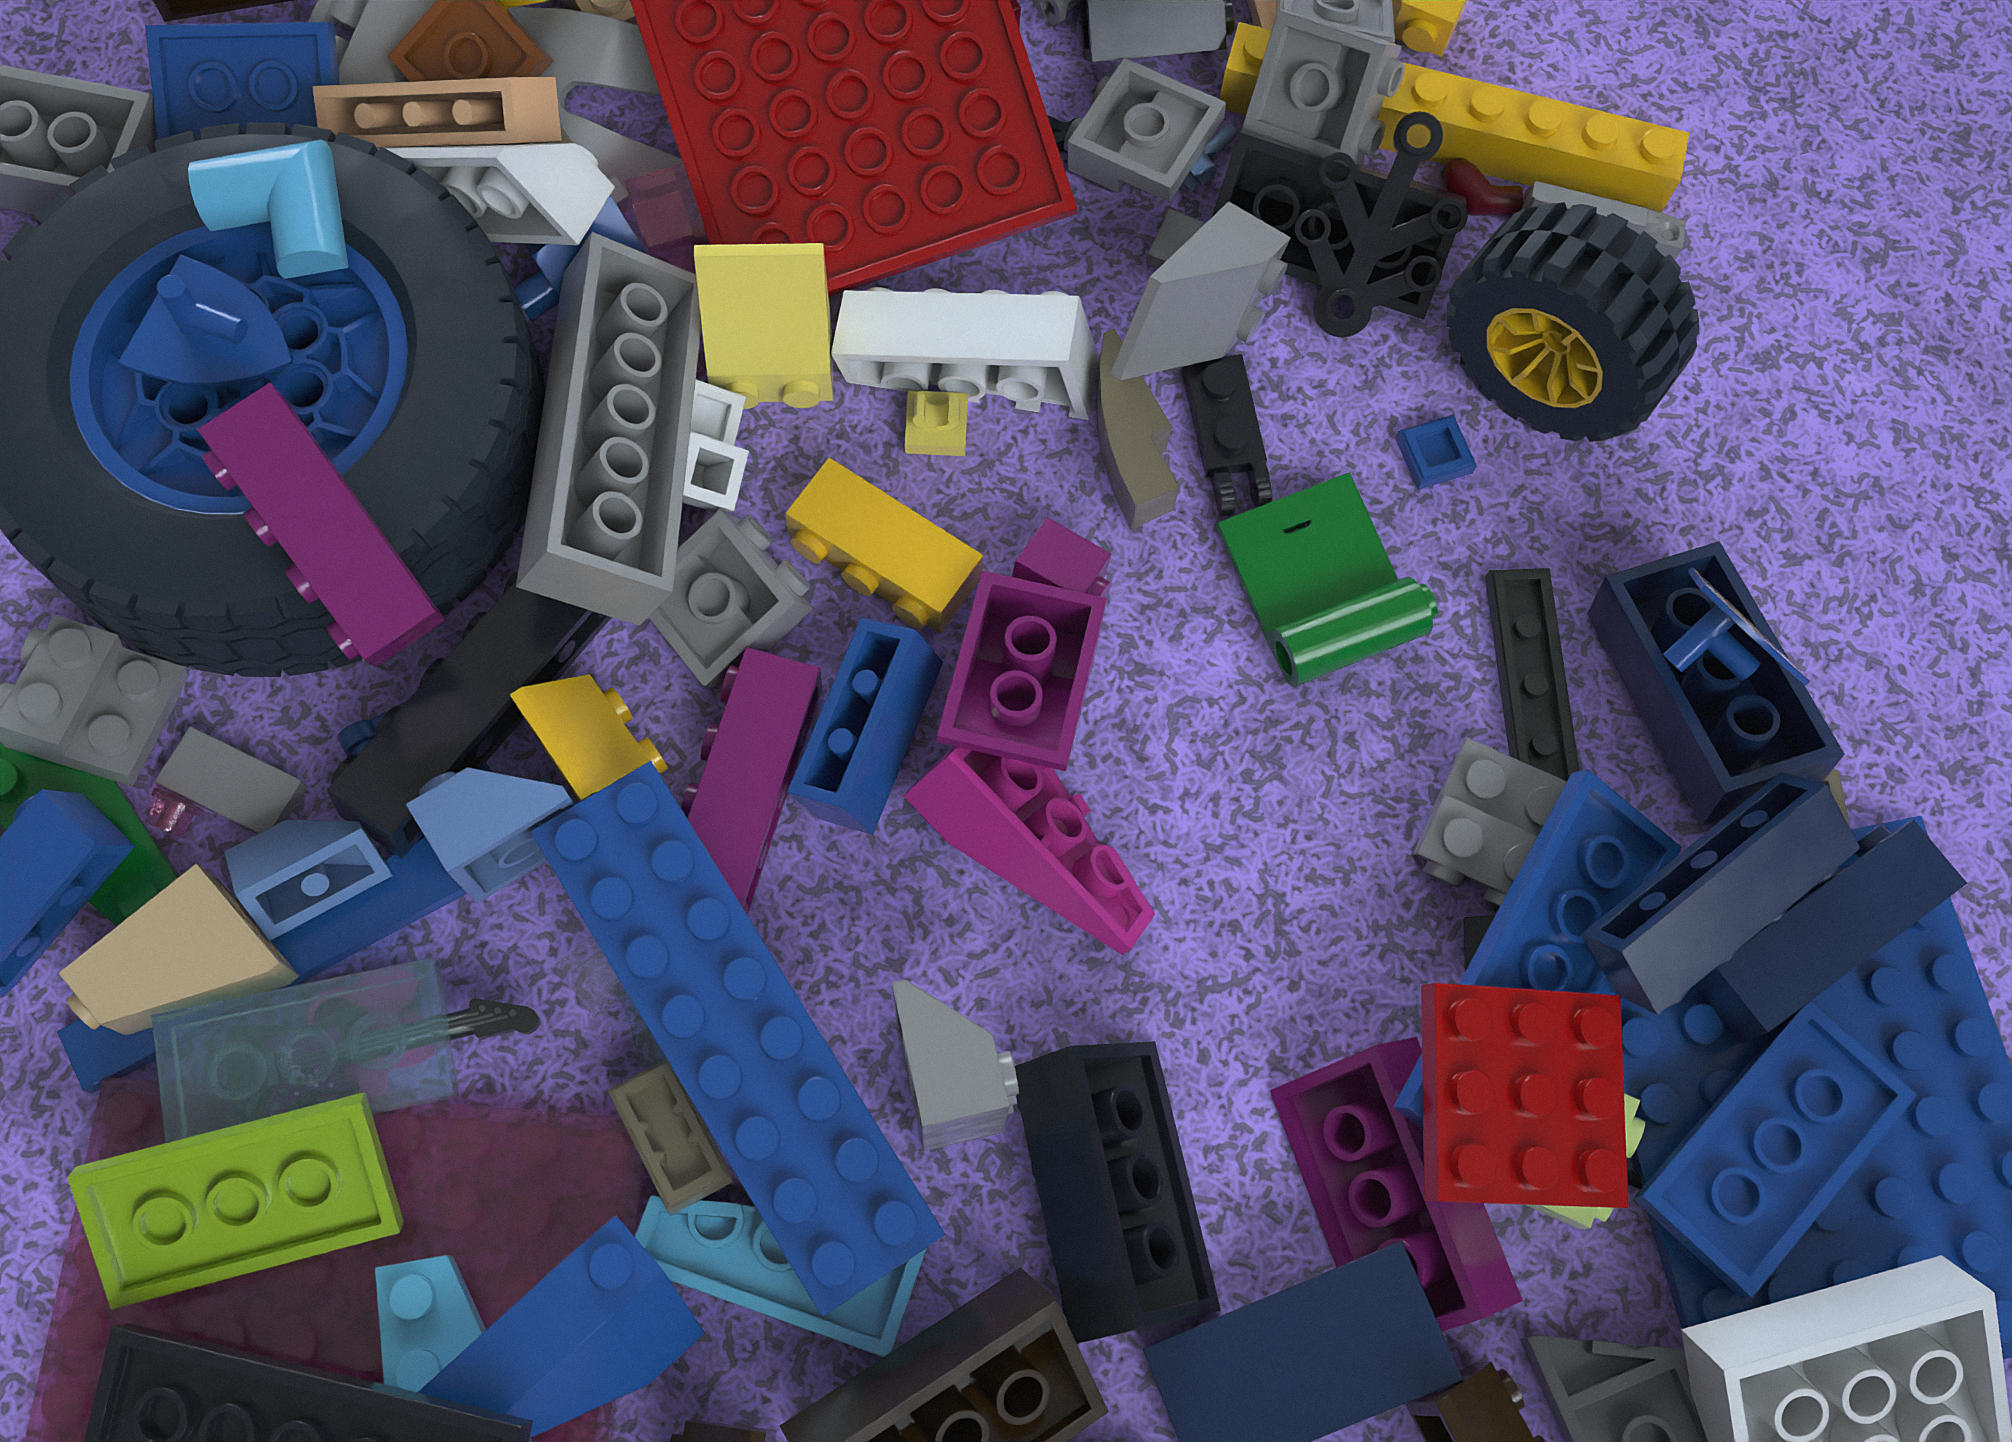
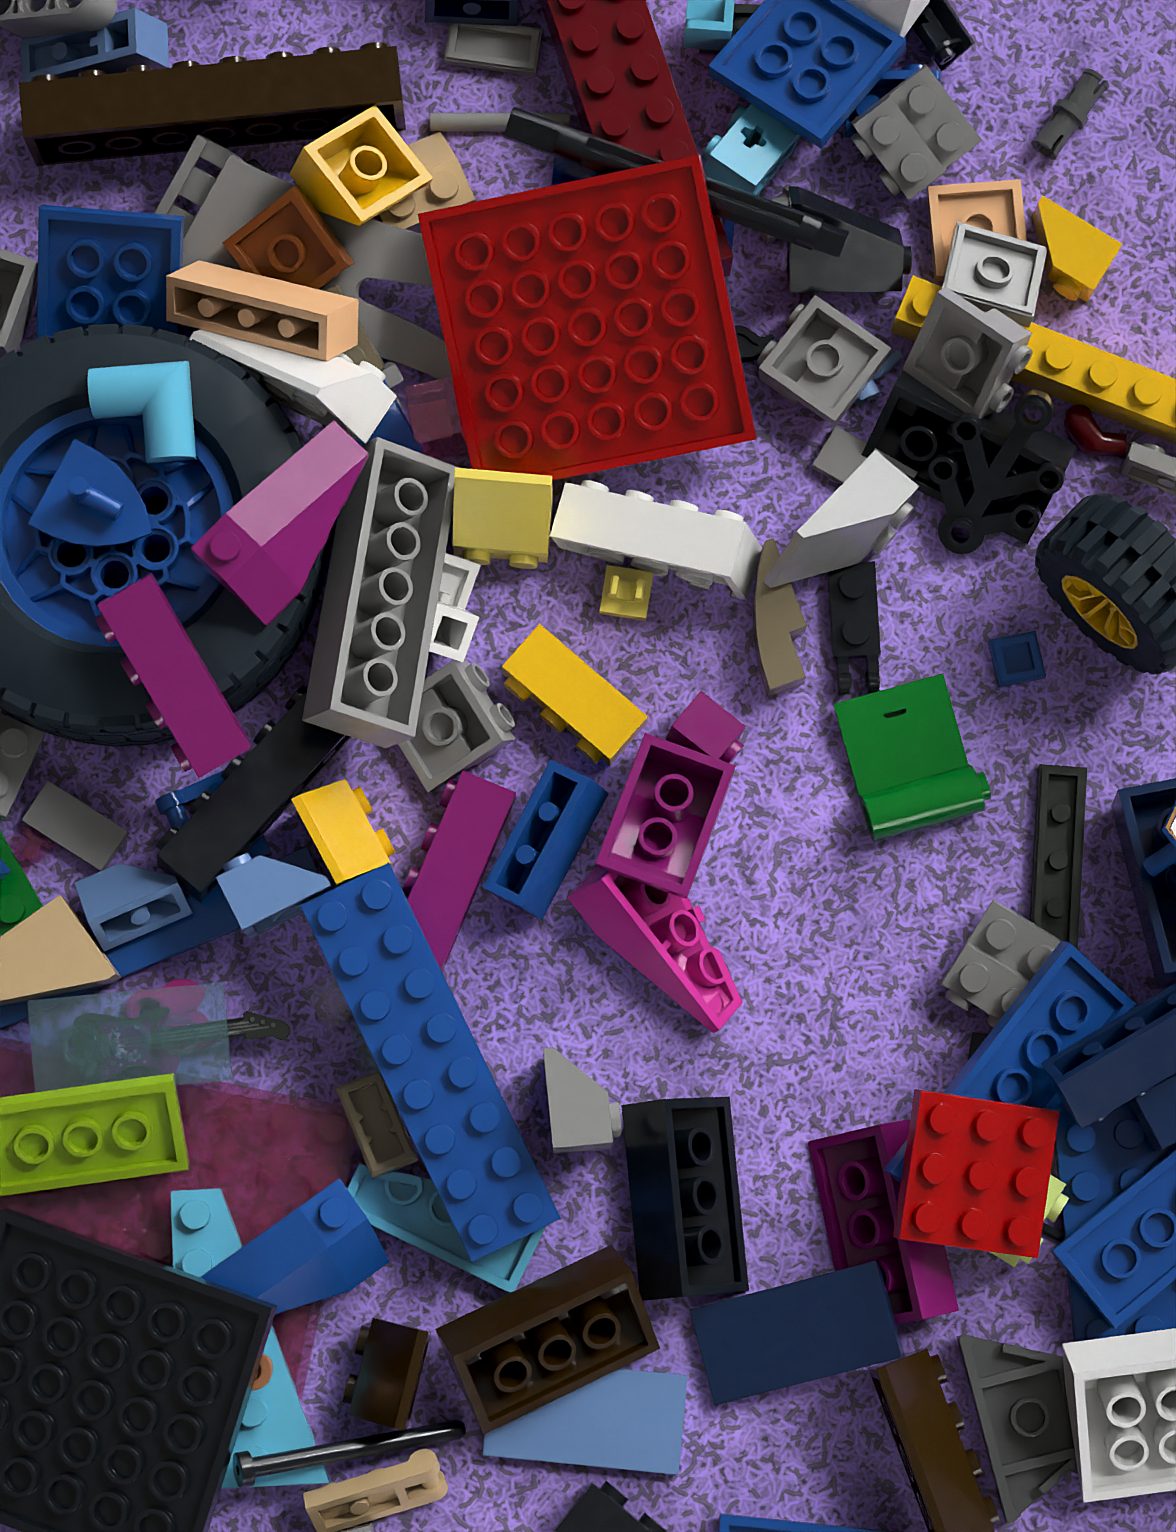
camera: 10 degrees right, 10 degrees up
(455, 332) = (279, 528): none -> magenta wedge

